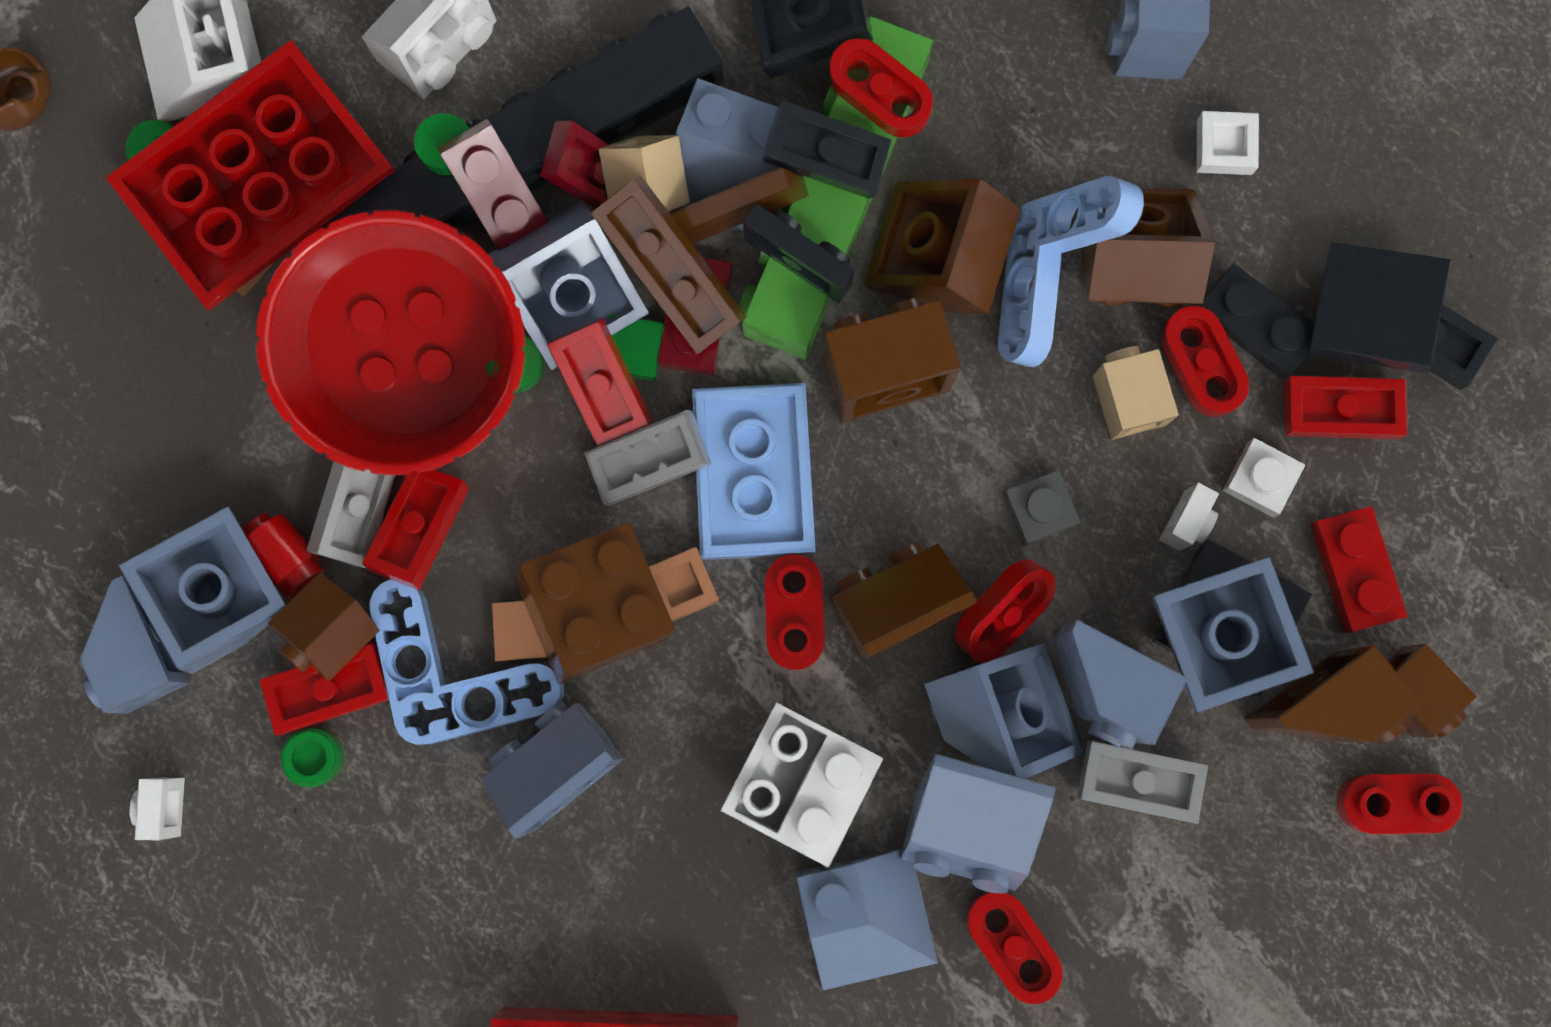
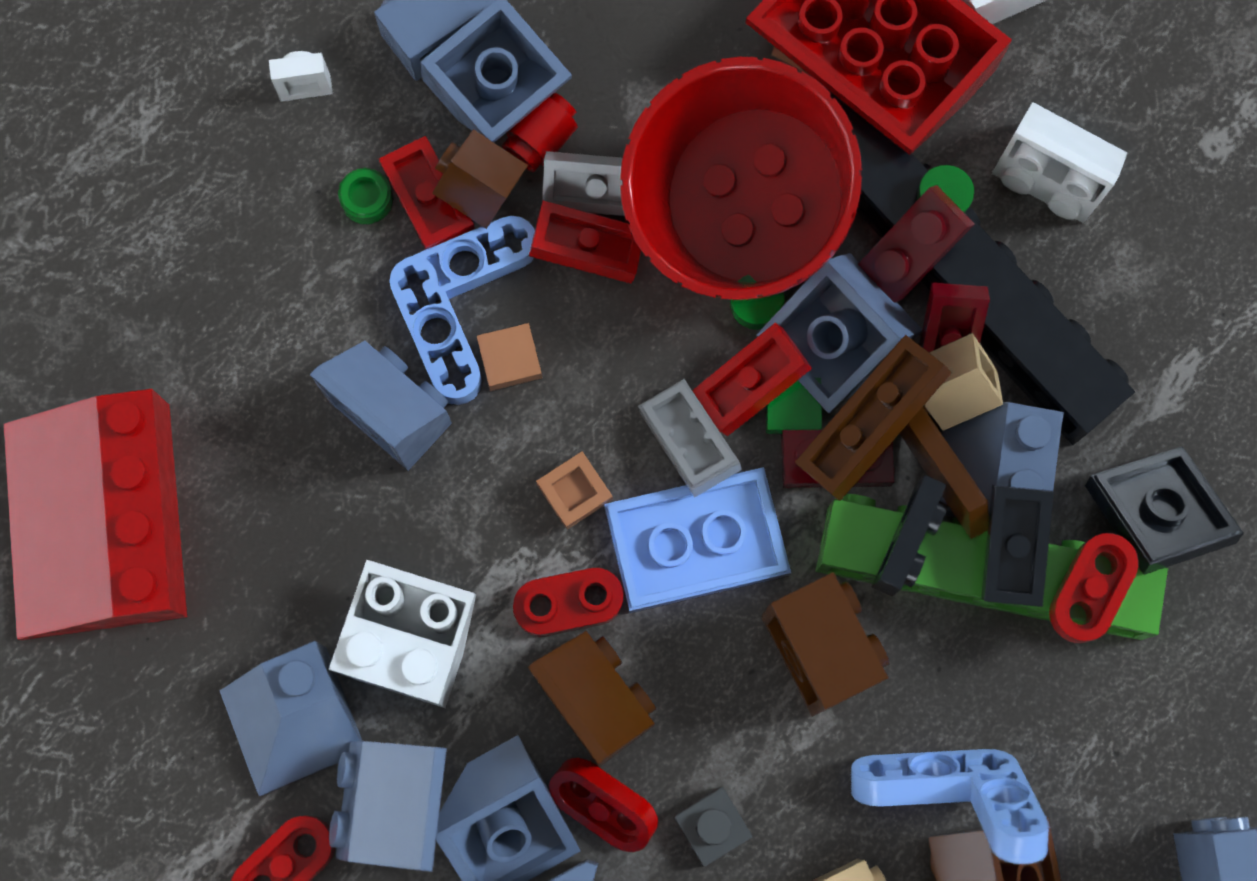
camera: 75 degrees right, 5 degrees down
(594, 603) = (542, 411): reddish brown brick -> none
(944, 243) = (955, 684): reddish brown slope -> none

